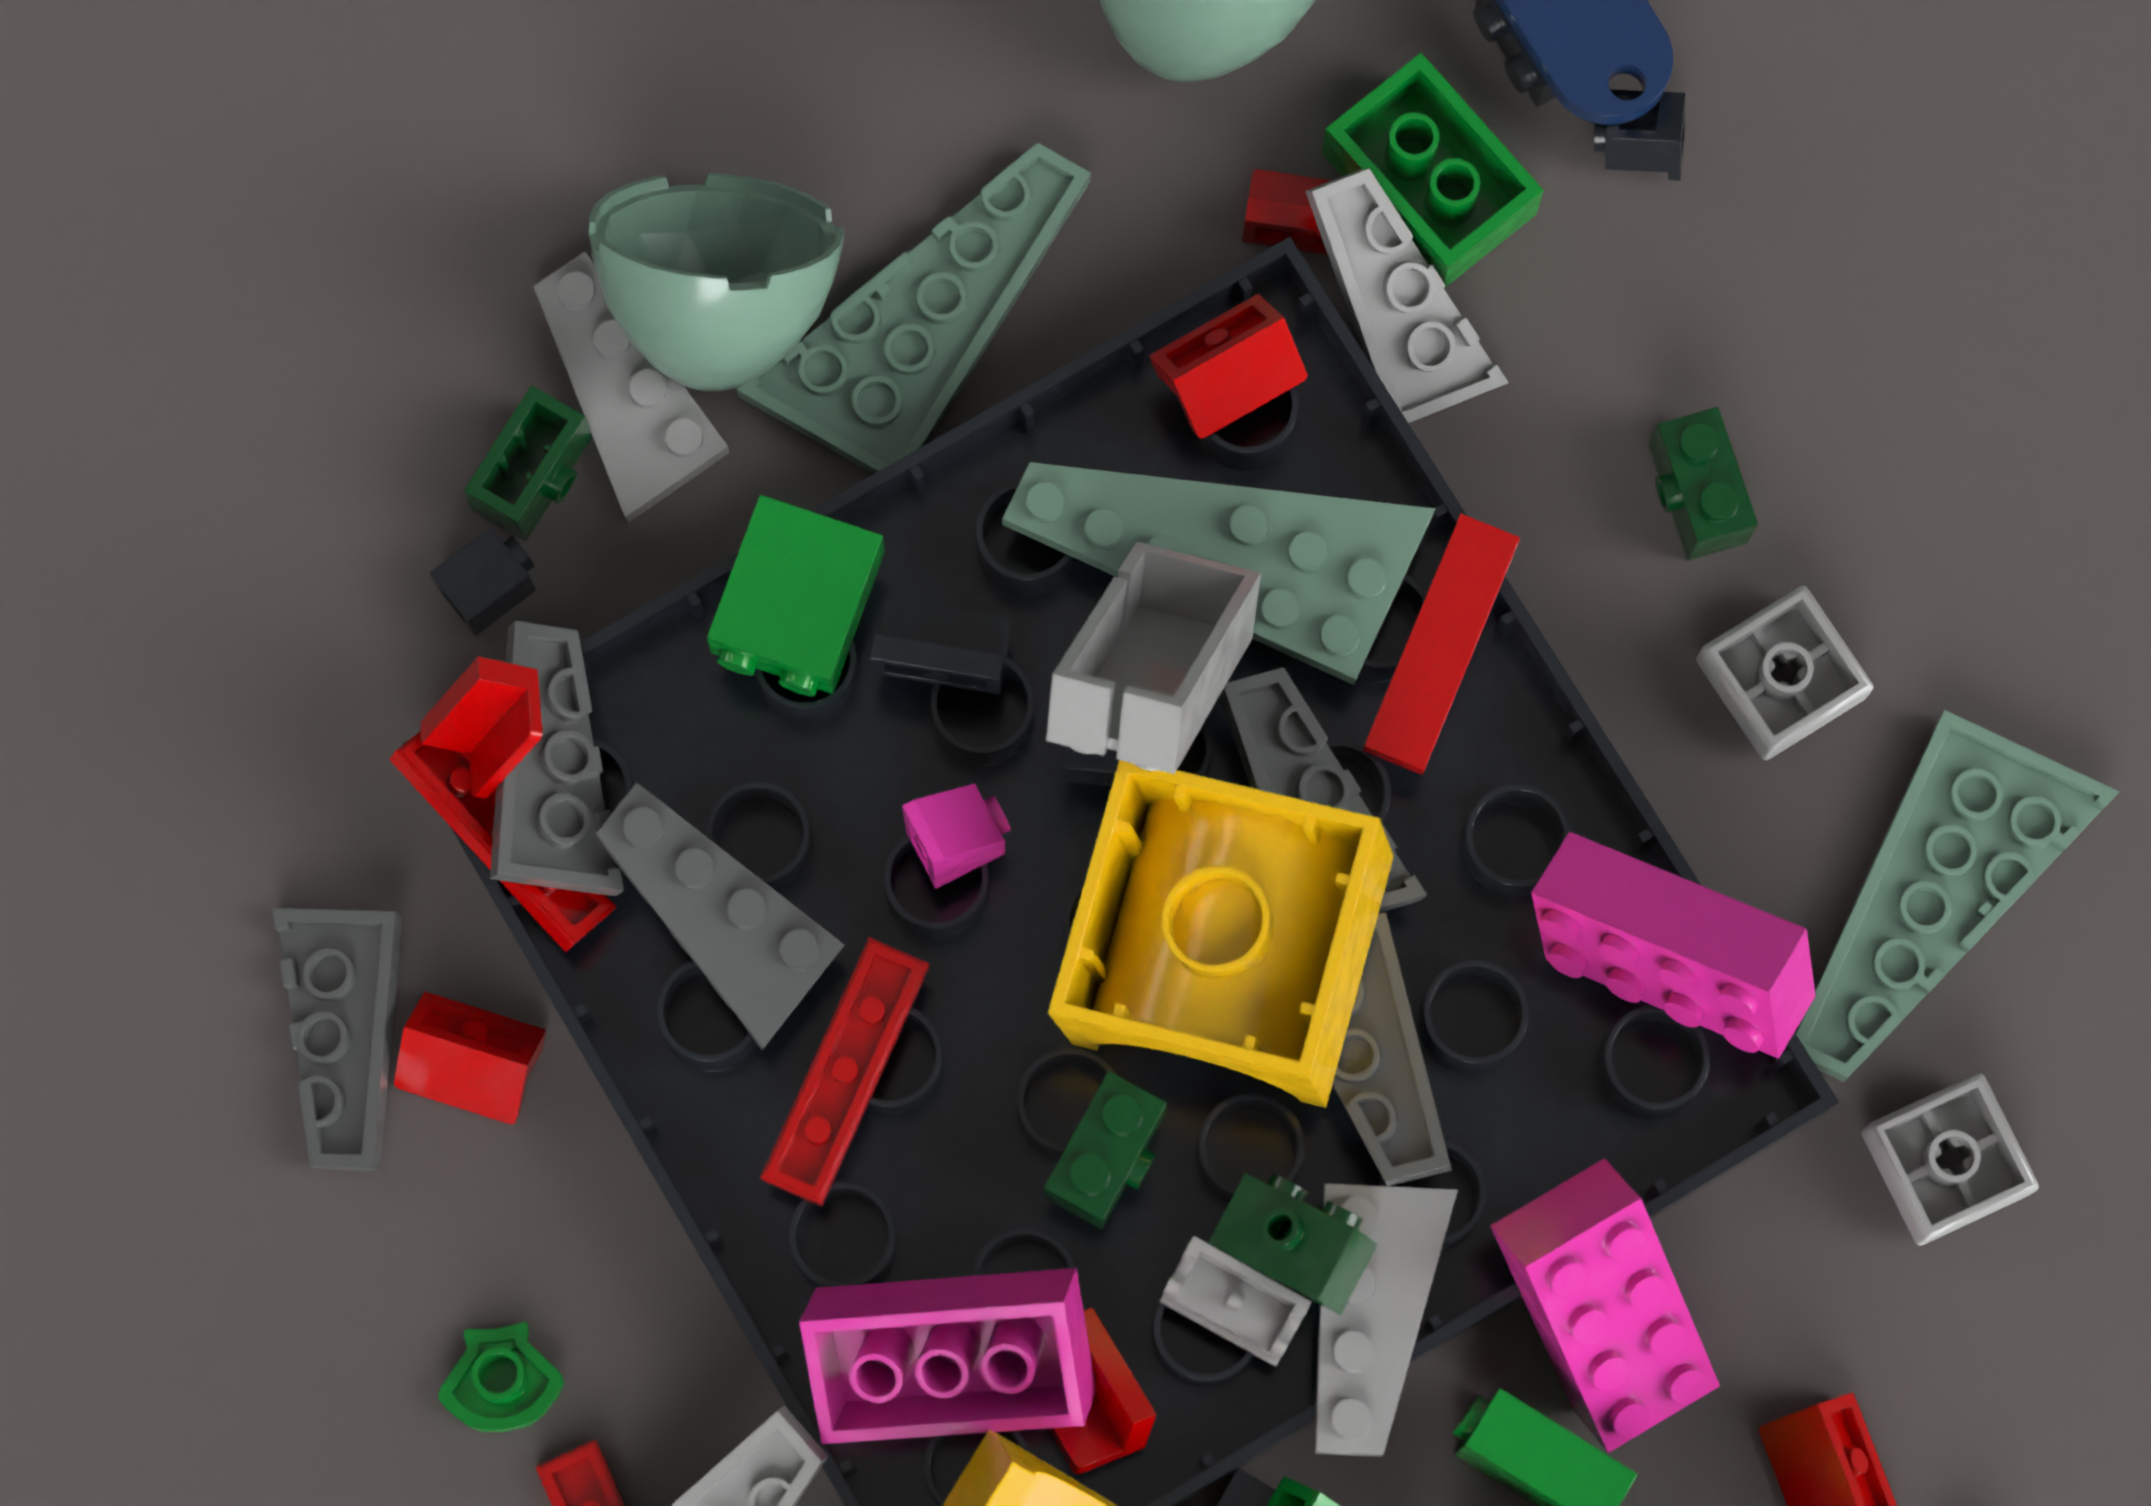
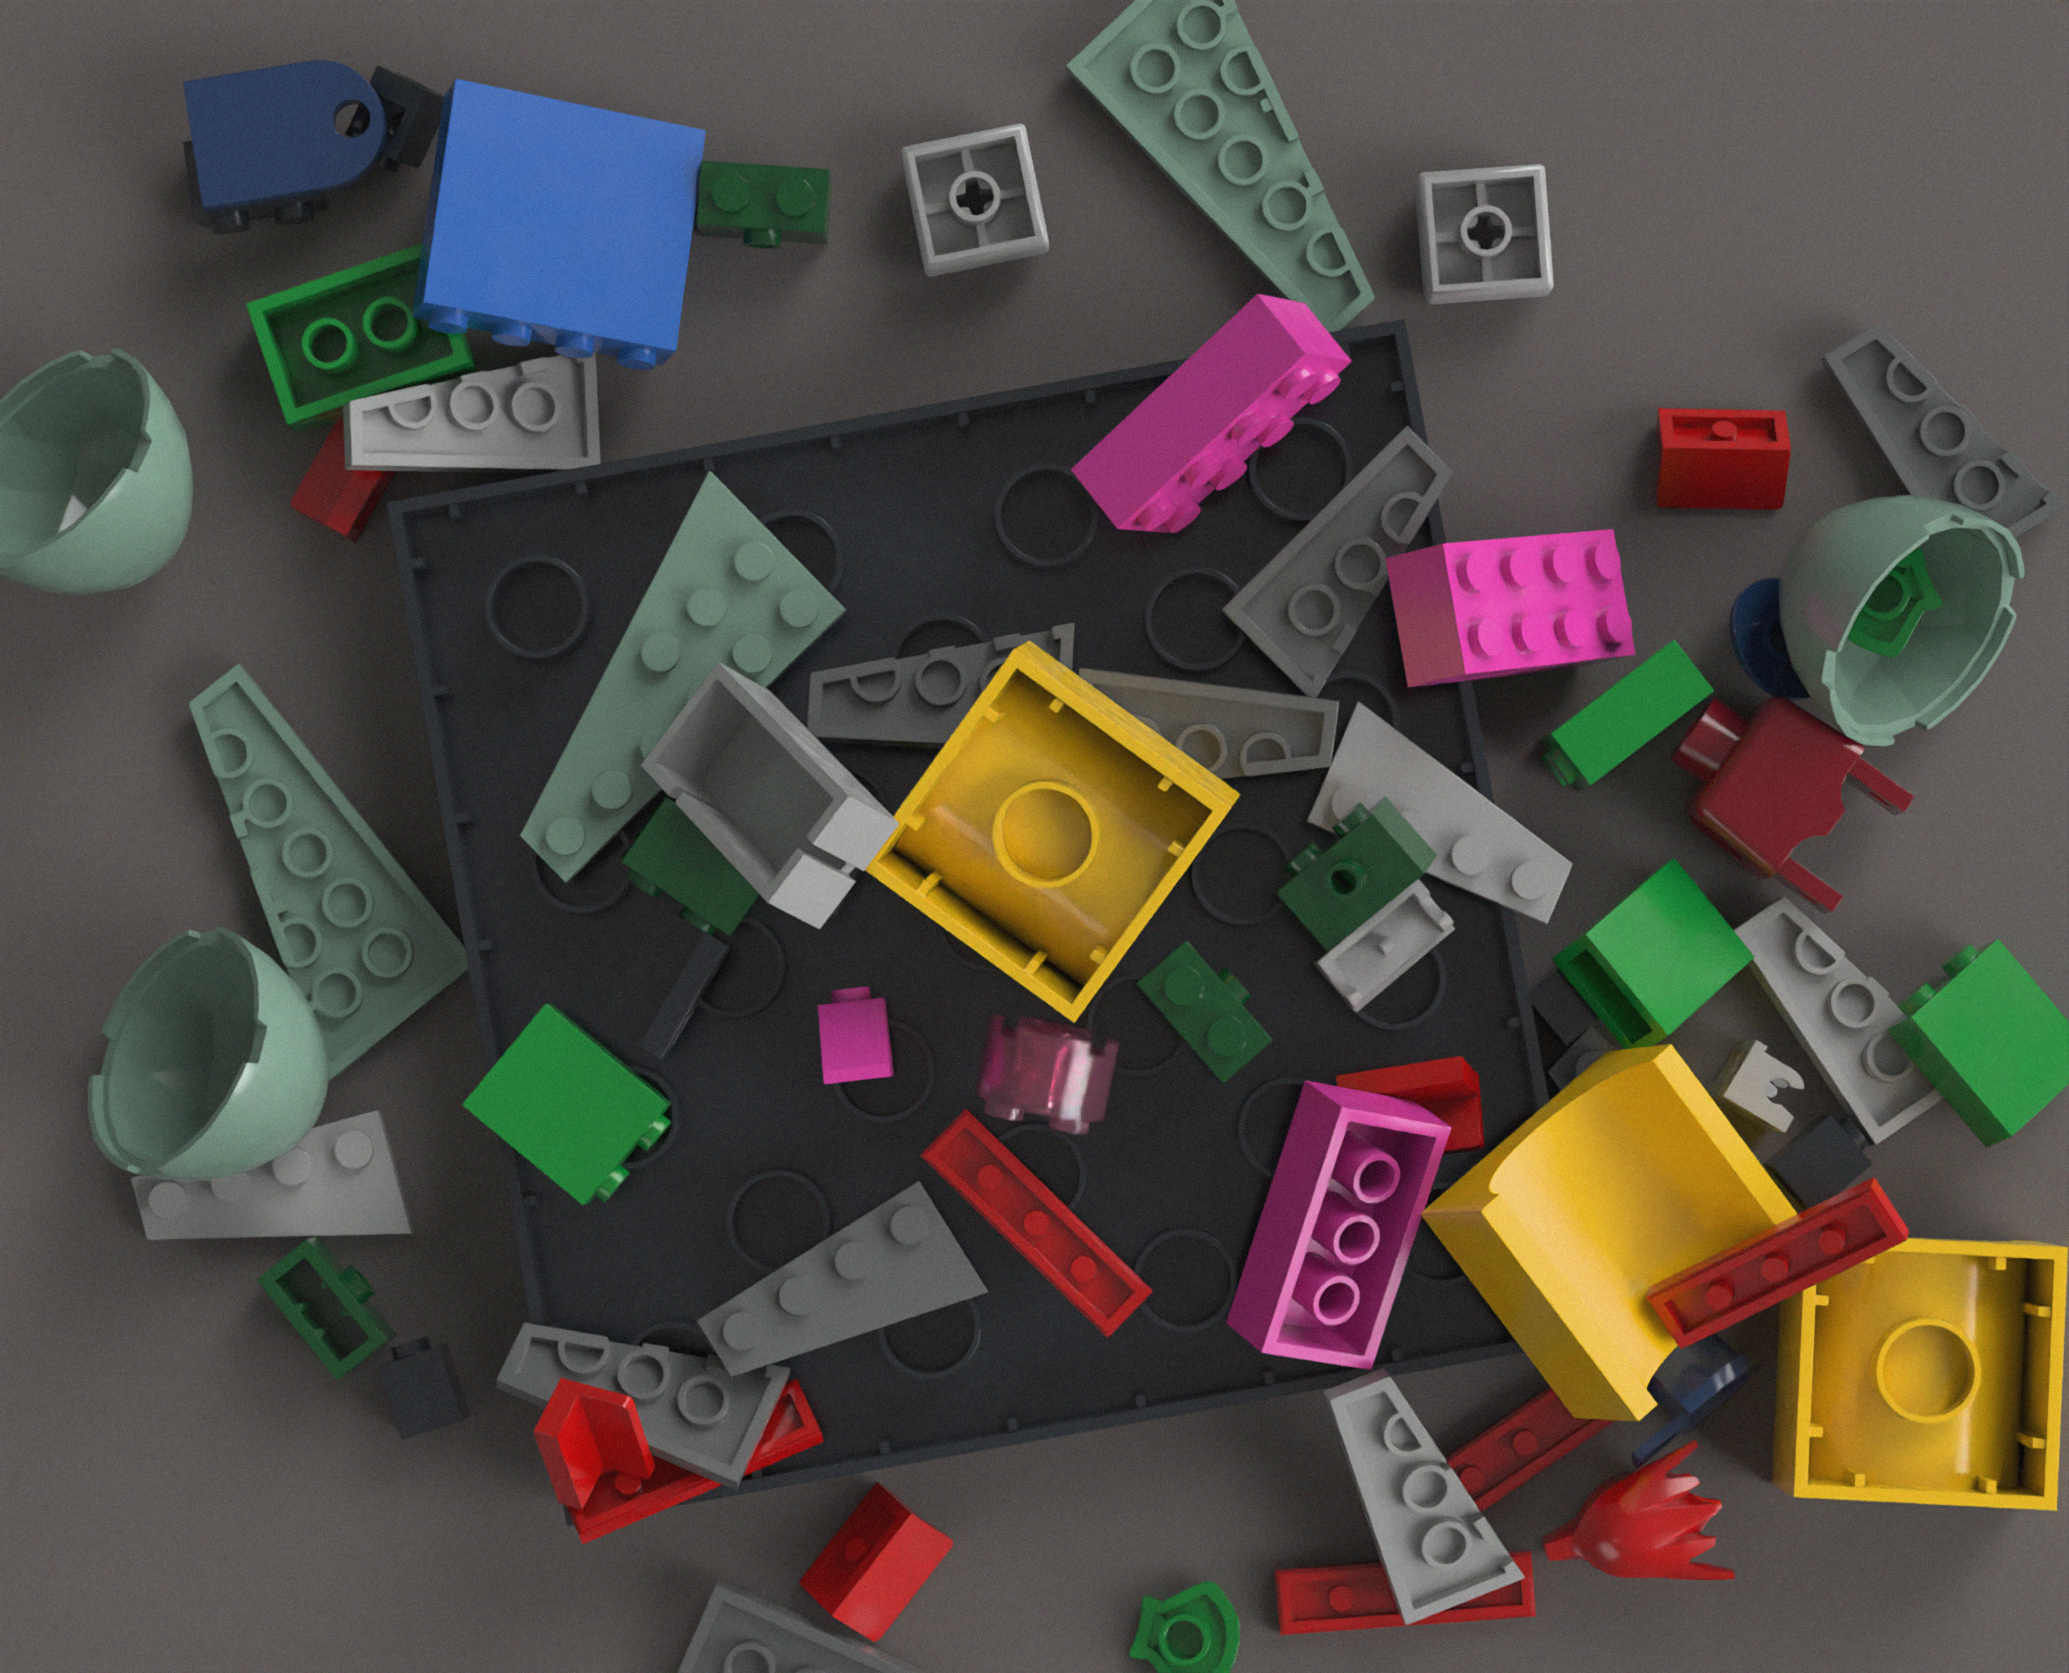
camera: 65 degrees left, 10 degrees up
(991, 1019) = (1046, 1072): none -> clear pink brick
(1058, 603) = (680, 860): none -> dark green brick
(1231, 365) = (495, 609): red panel -> none
(1441, 644) = (840, 514): red tile -> none
(1566, 1117) = (1332, 571): none -> dark grey wing
(1605, 300) = (558, 225): none -> blue brick

